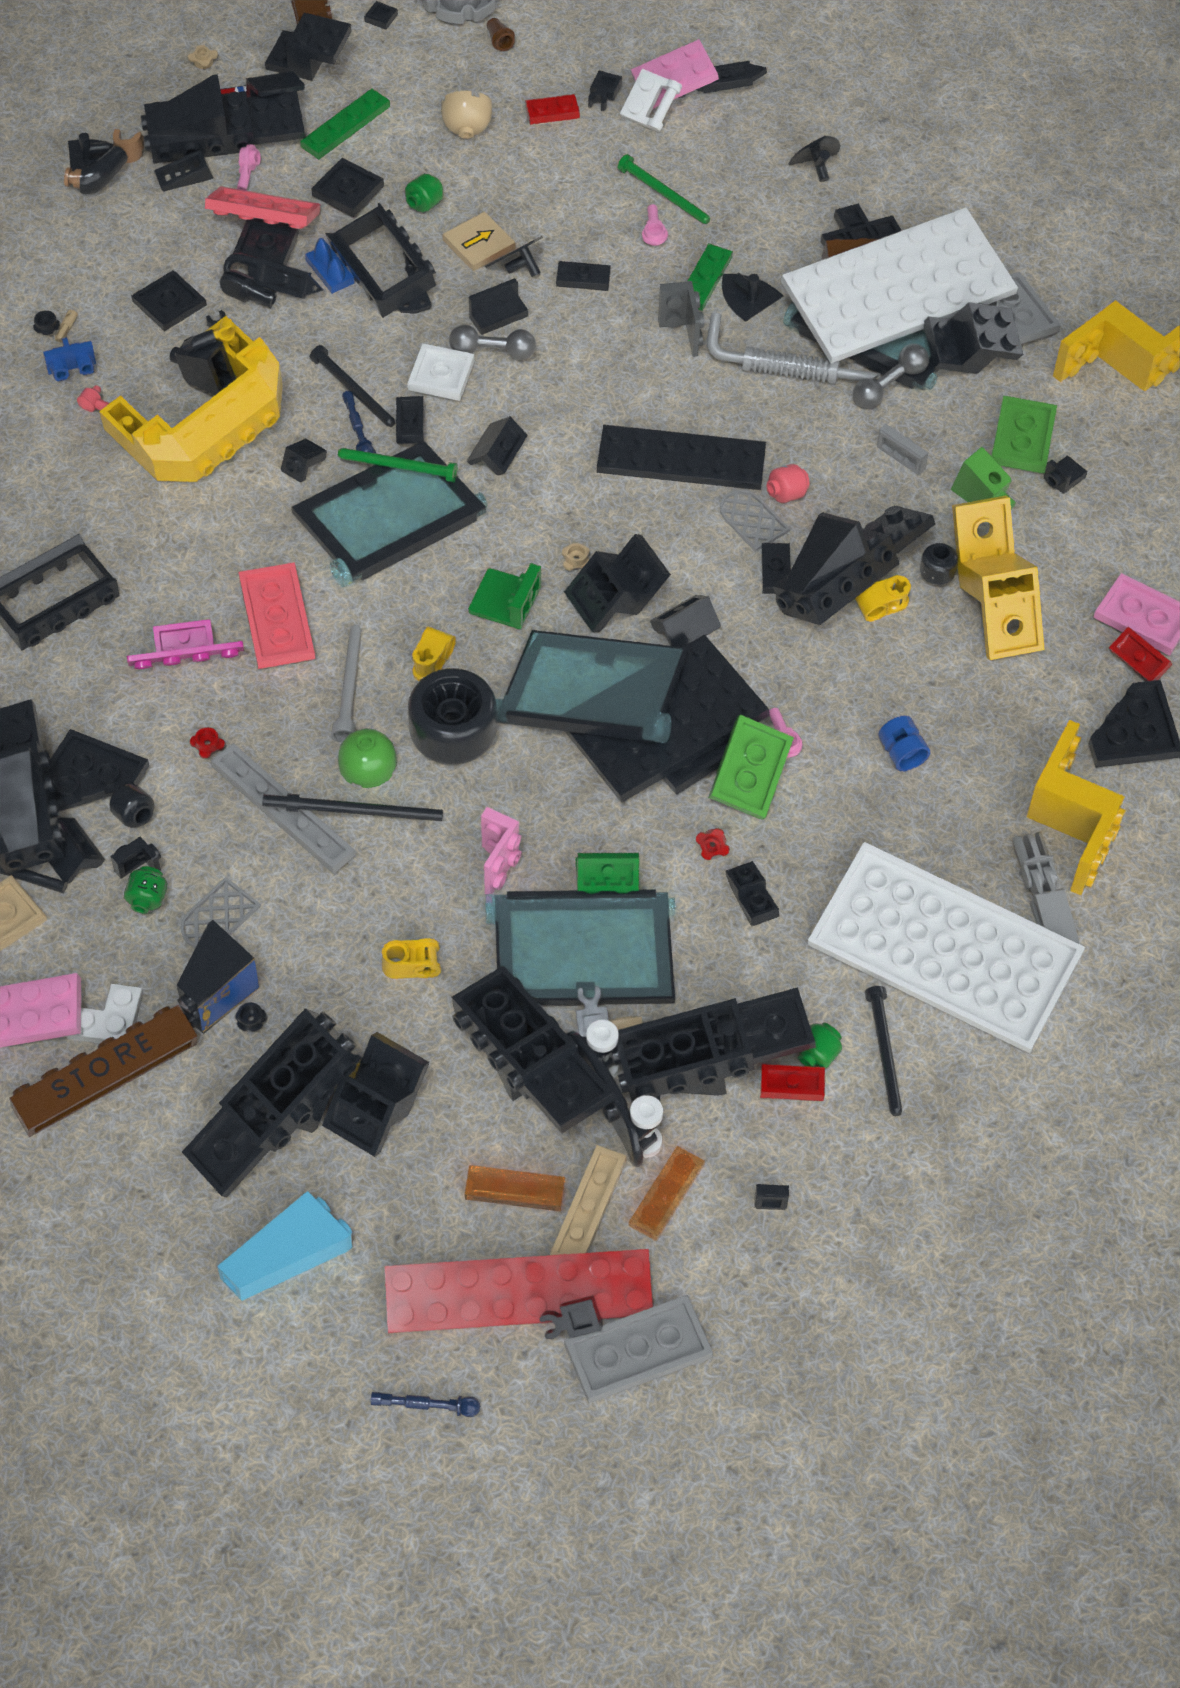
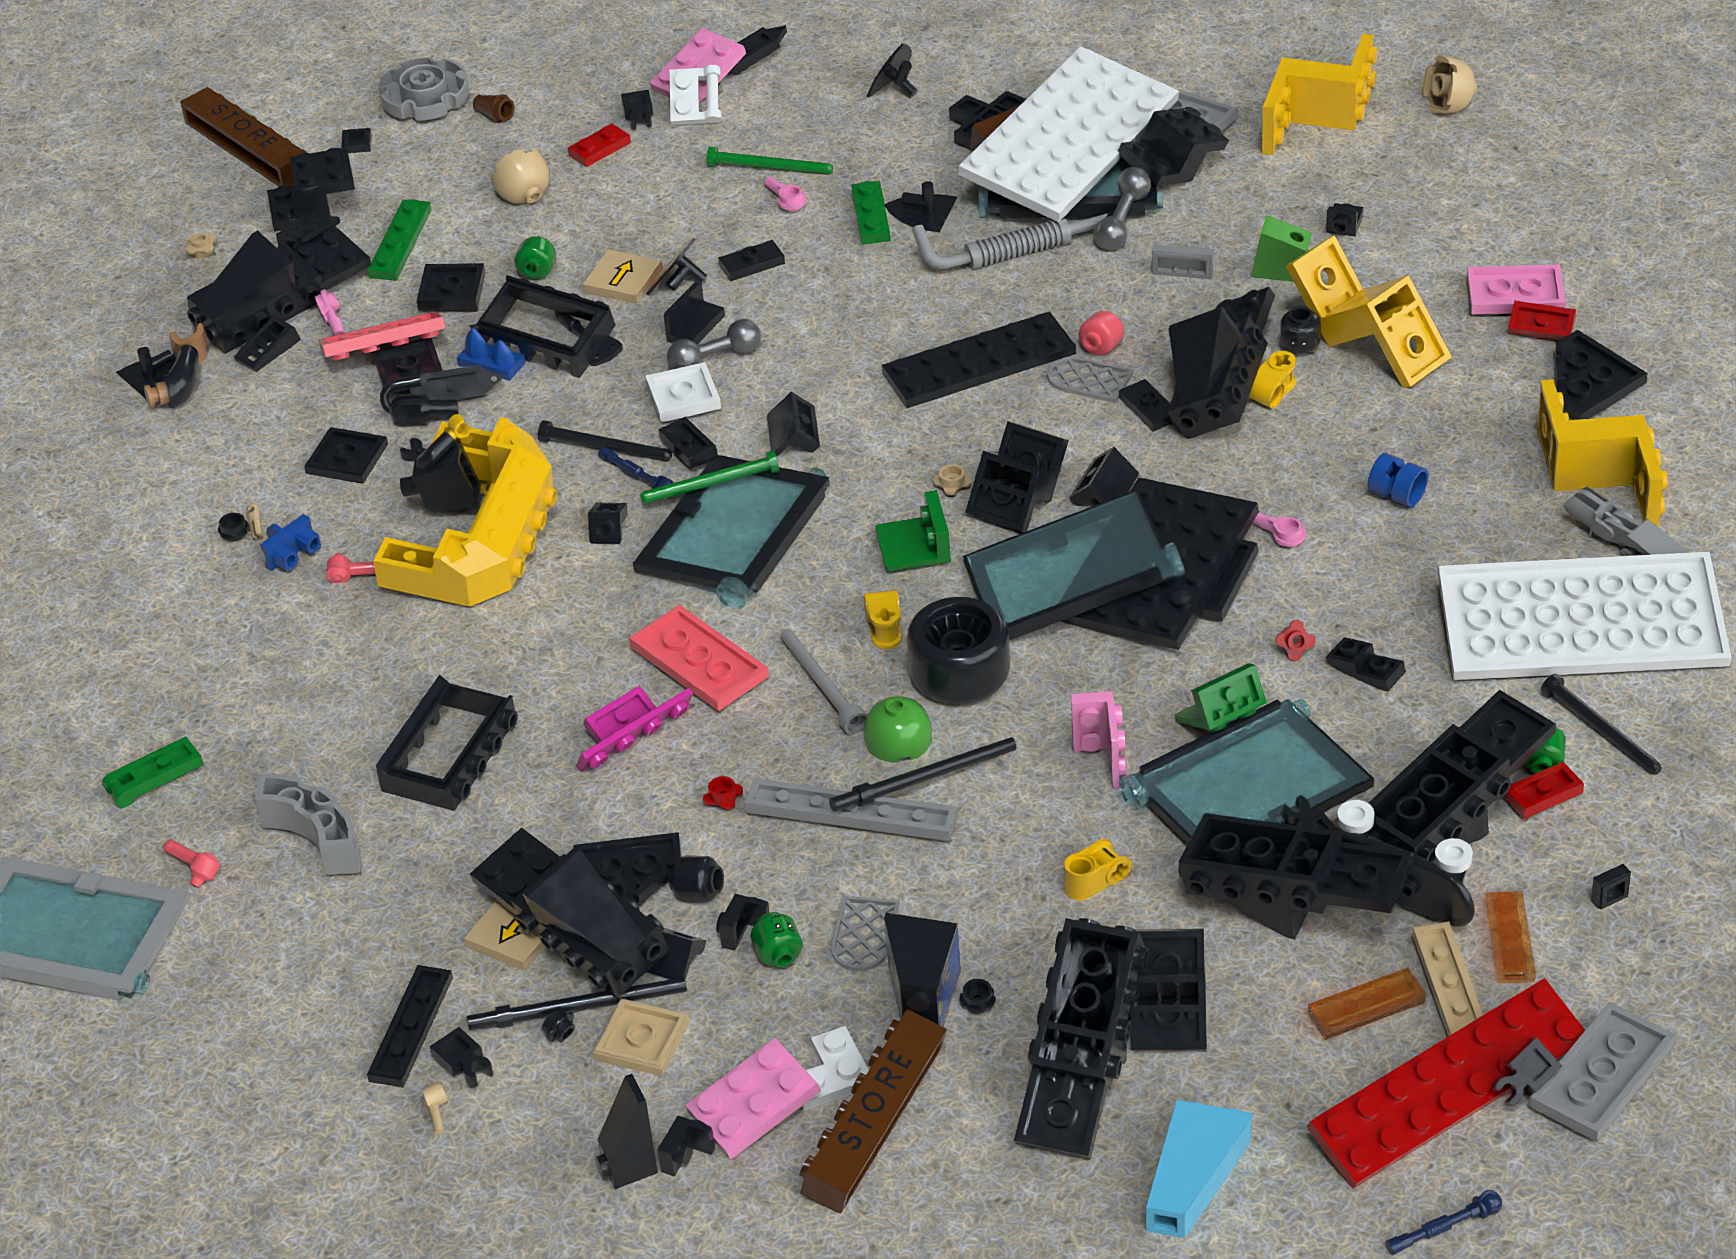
camera: 25 degrees left, 15 degrees down
(680, 307) = (882, 236): dark grey bracket -> none
(751, 767) = (1279, 560): bright green plate -> none
(1024, 434) = (1281, 197): bright green plate -> none

